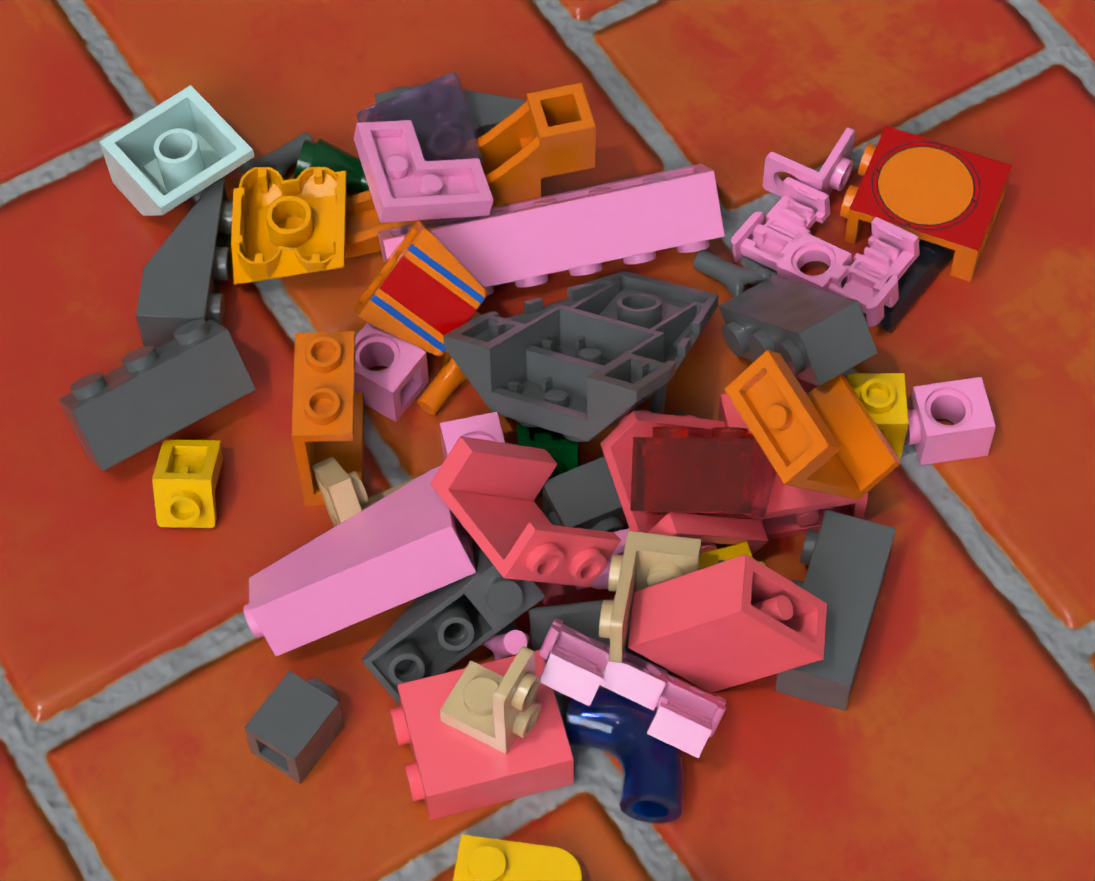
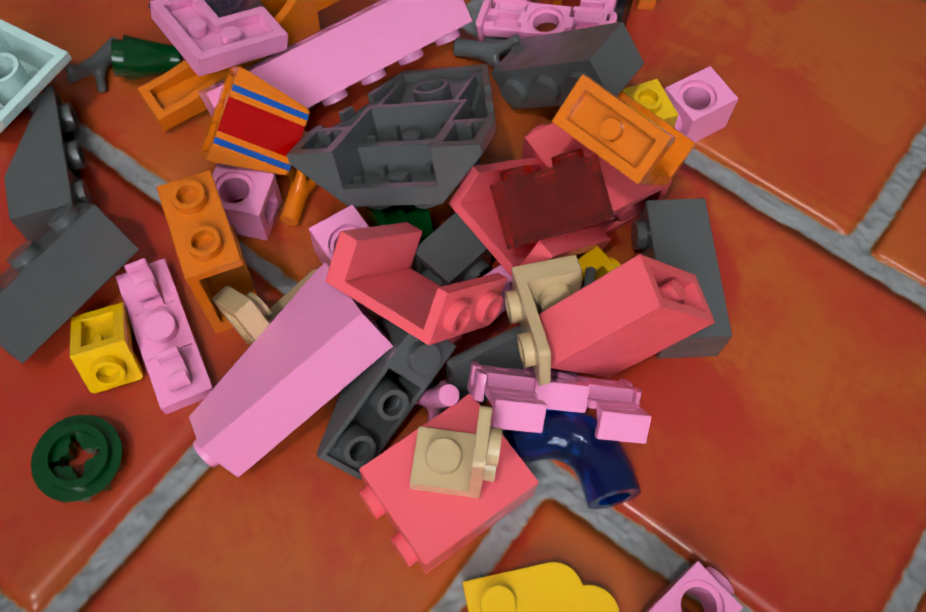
camera: 25 degrees left, 5 degrees up
(109, 568) = (58, 447): none -> dark green gear
(251, 487) = (164, 335): none -> bright pink plate
(288, 223) = (119, 106): light orange slope -> none
(295, 725) = (278, 534): dark grey brick -> none

